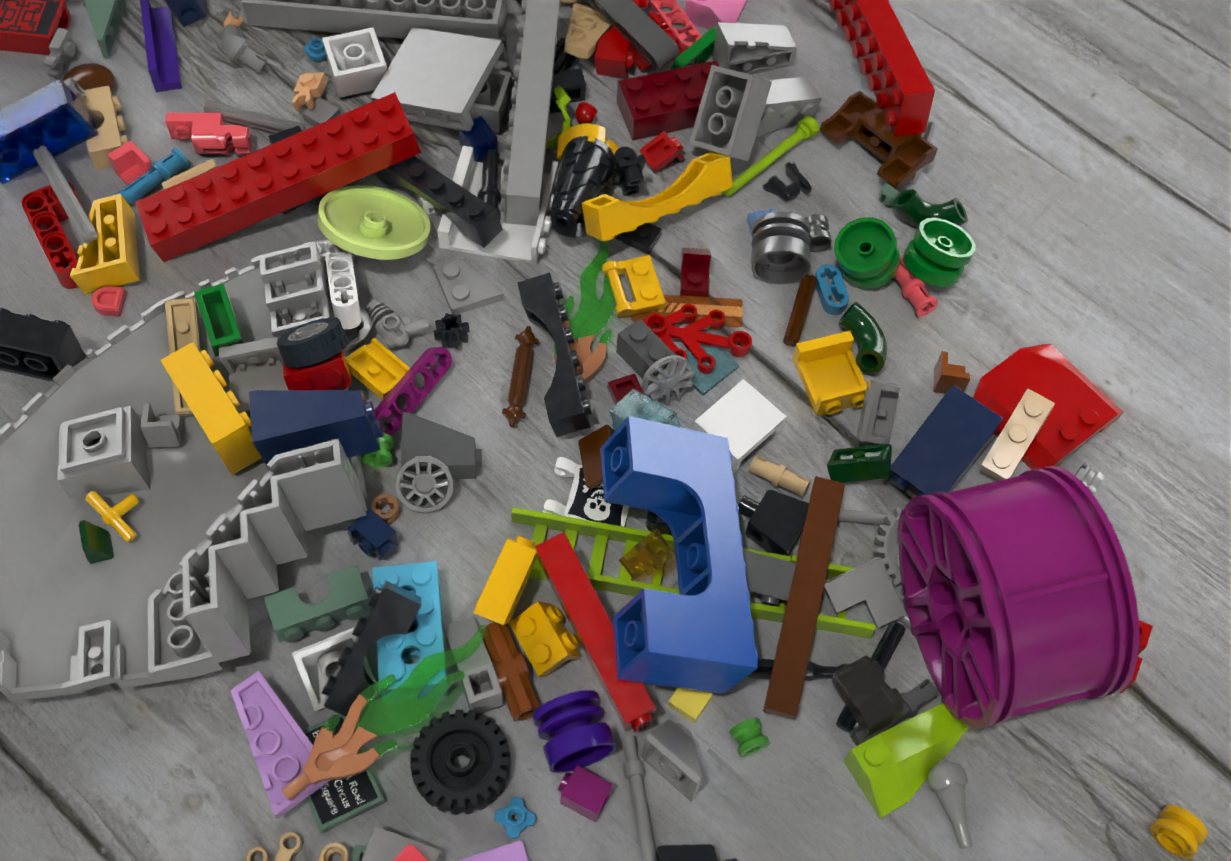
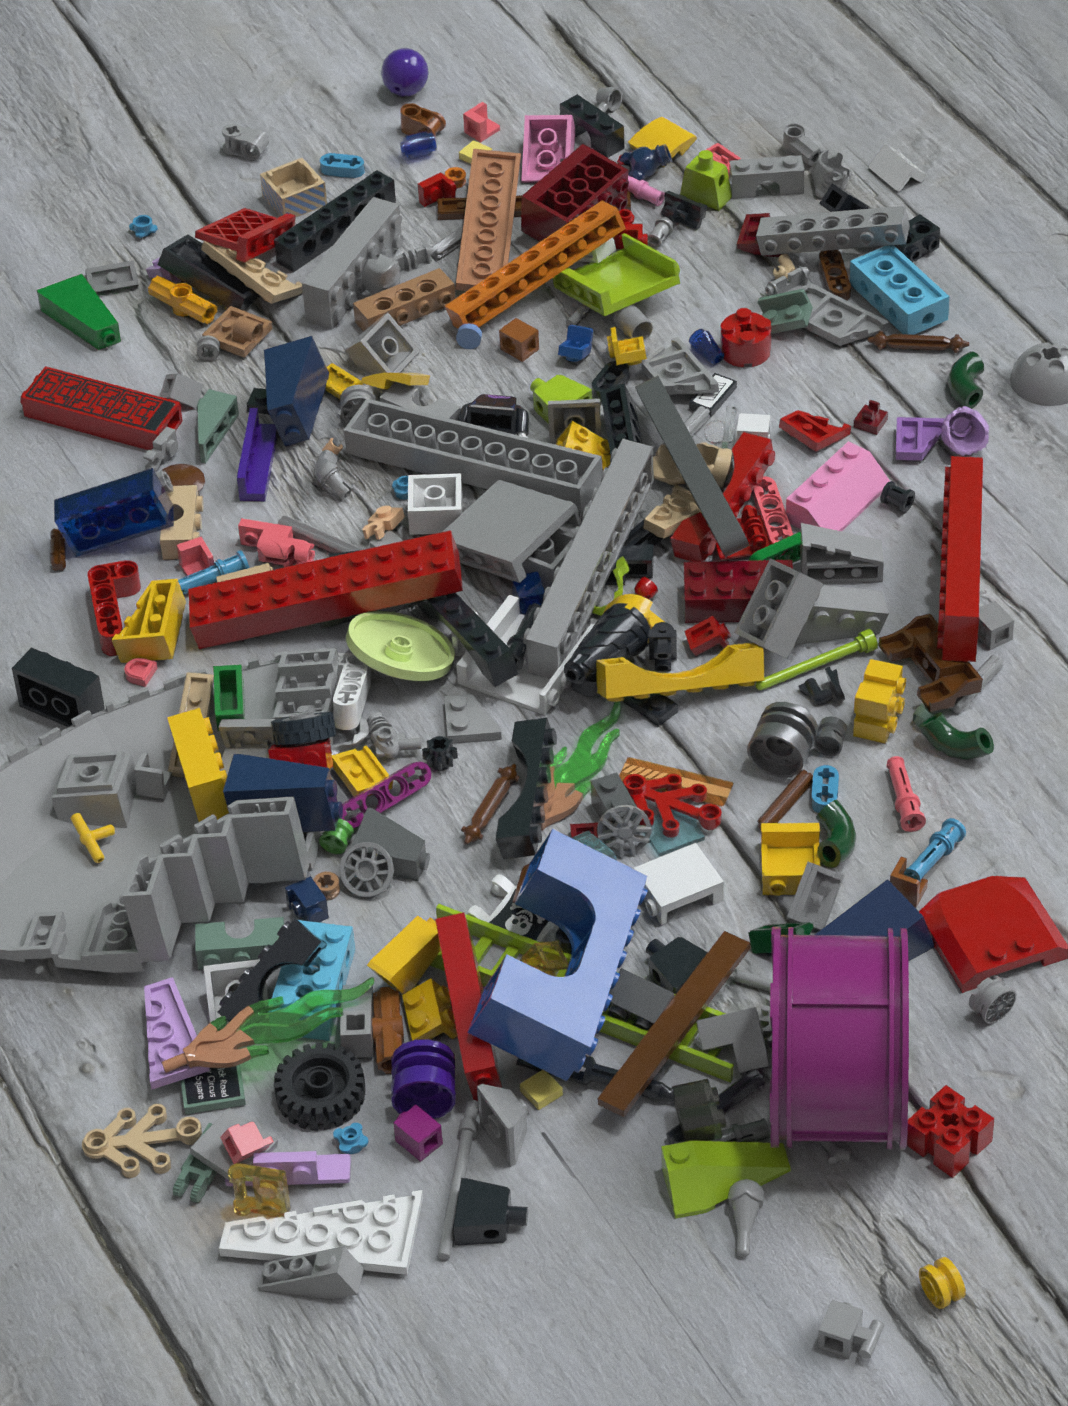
camera: 25 degrees right, 15 degrees down
(65, 195) = (128, 571): light grey axle -> none
(95, 542) = (68, 855): dark green slope -> none
(642, 284) = (639, 748): yellow plate -> none
(695, 272) = (695, 748): dark red slope -> none
(749, 737) = (580, 1125): bright green wheel -> none
(779, 476) = (699, 932): tan pin -> none
(851, 187) = (879, 701): none -> yellow brick
(867, 253) = (867, 760): green wheel -> none
(939, 252) = (941, 772): green wheel -> none
(963, 326) = (940, 844): none -> dark azure pin
(1017, 436) = (951, 925): tan arch -> none

